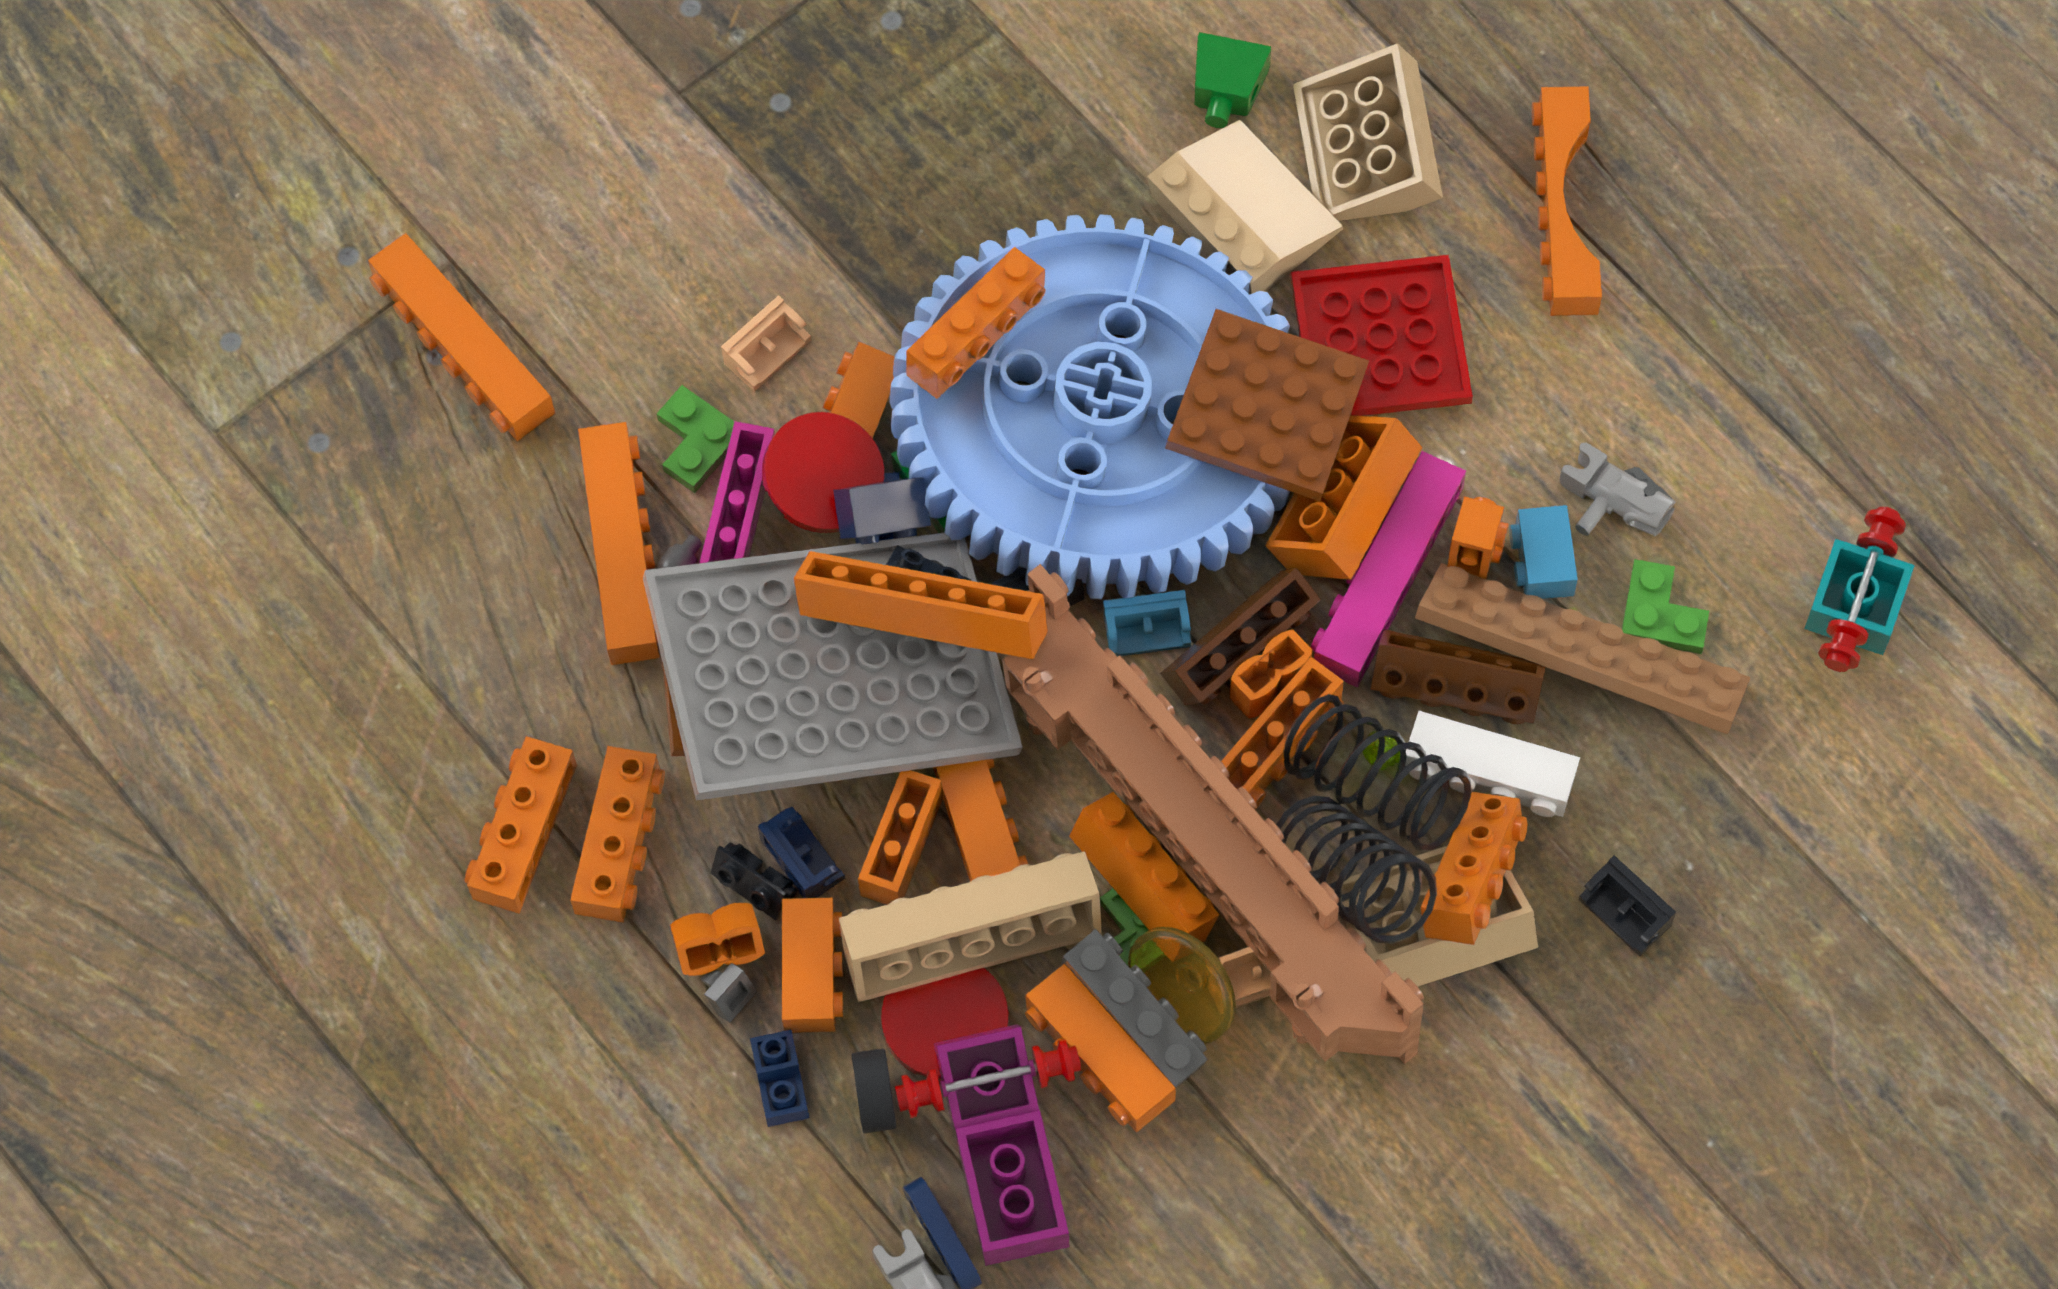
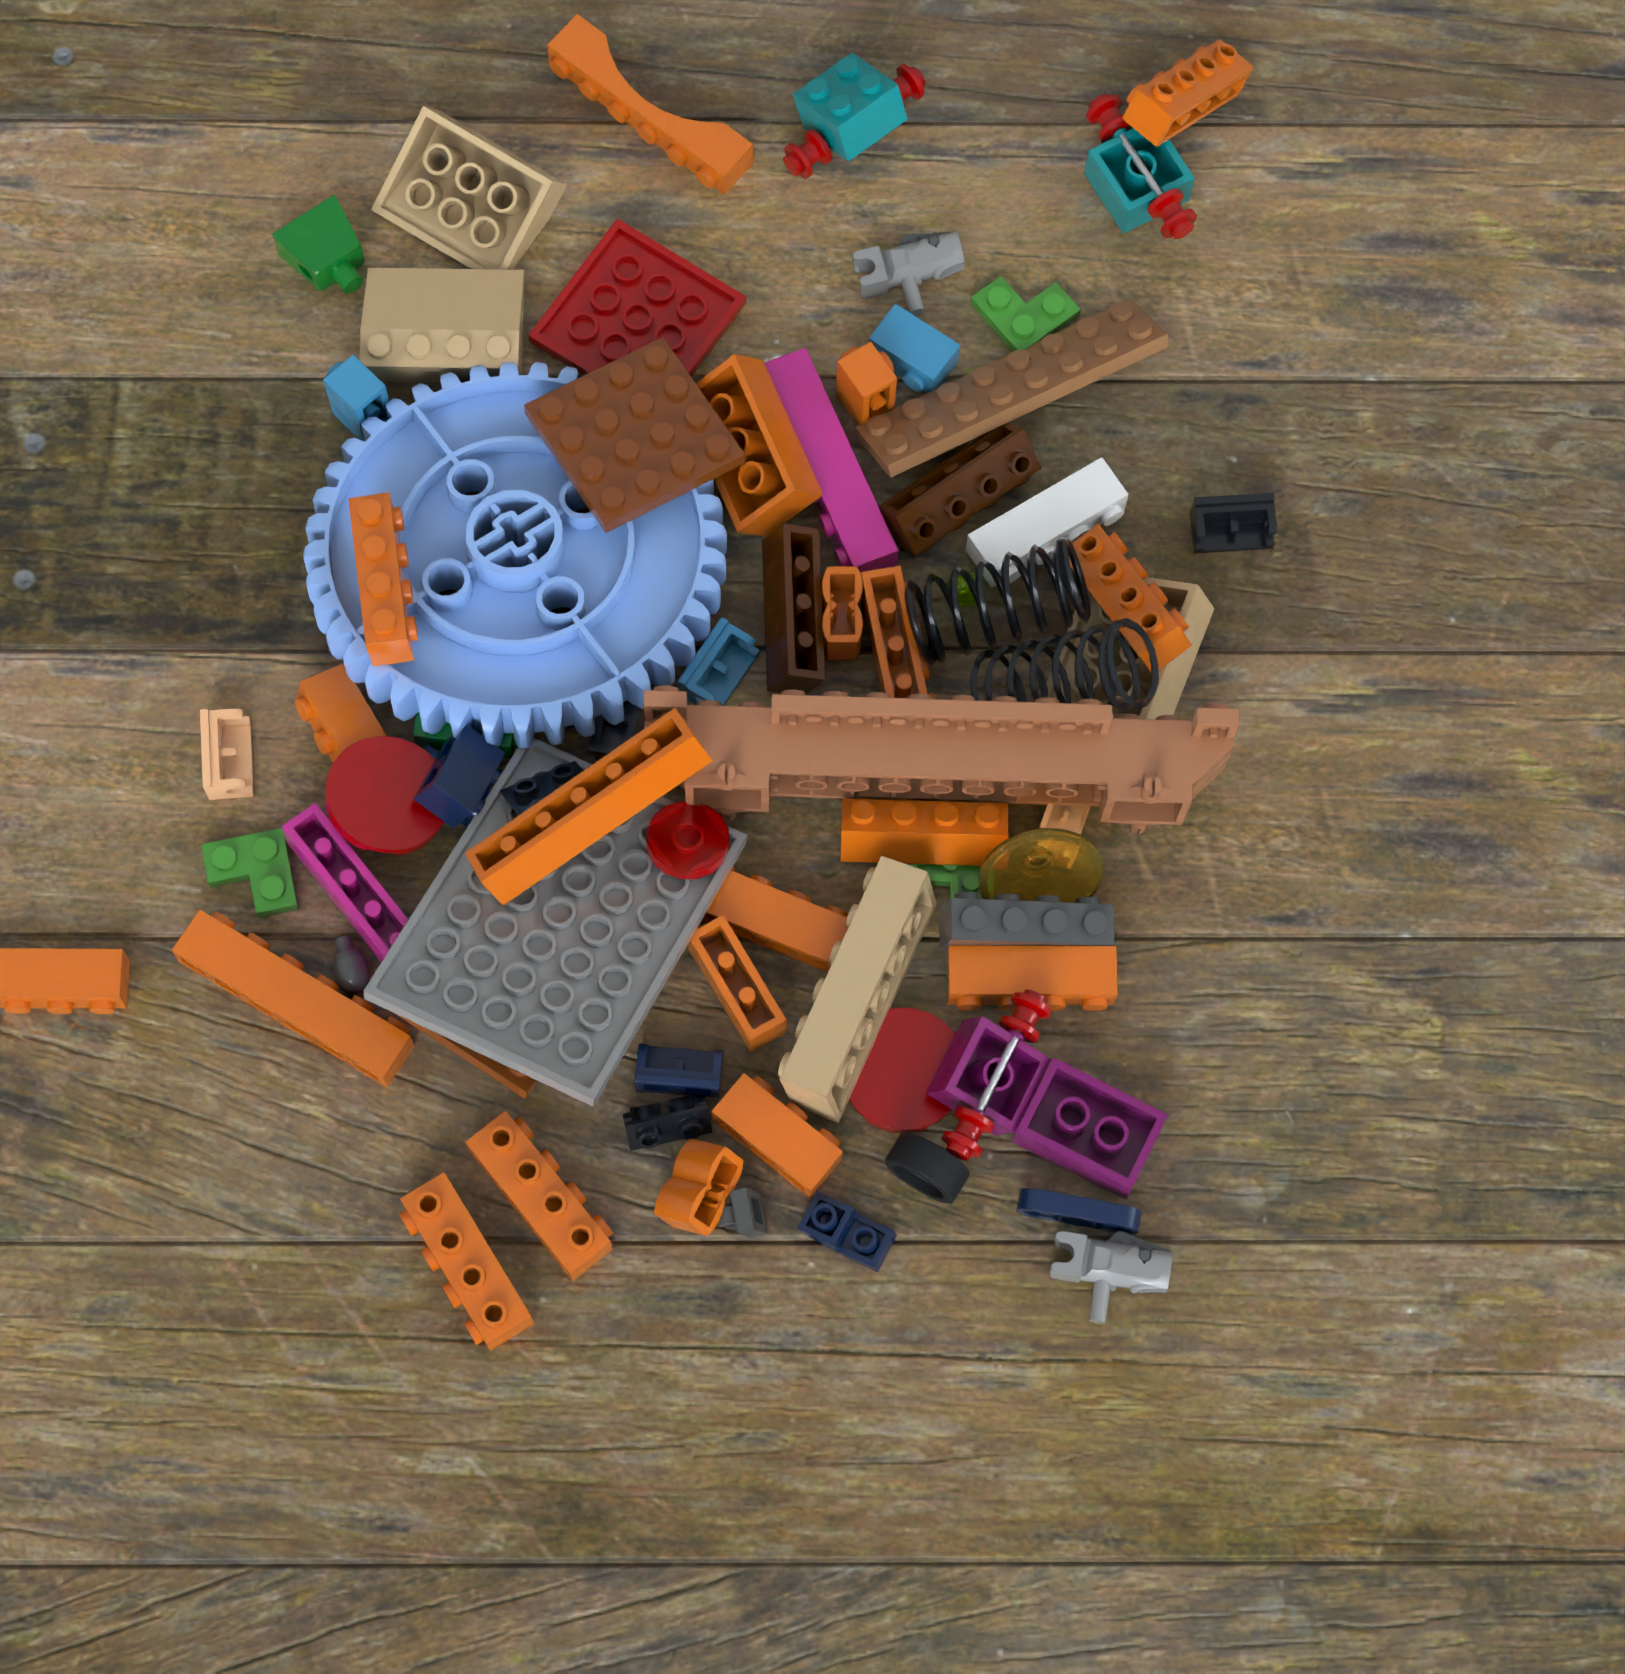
camera: 55 degrees left, 5 degrees up
(975, 706) = (687, 840): none -> red tile
(1122, 189) = (355, 394): none -> dark azure brick
(1704, 343) = (849, 111): none -> teal brick
(1963, 572) = (1187, 92): none -> orange brick

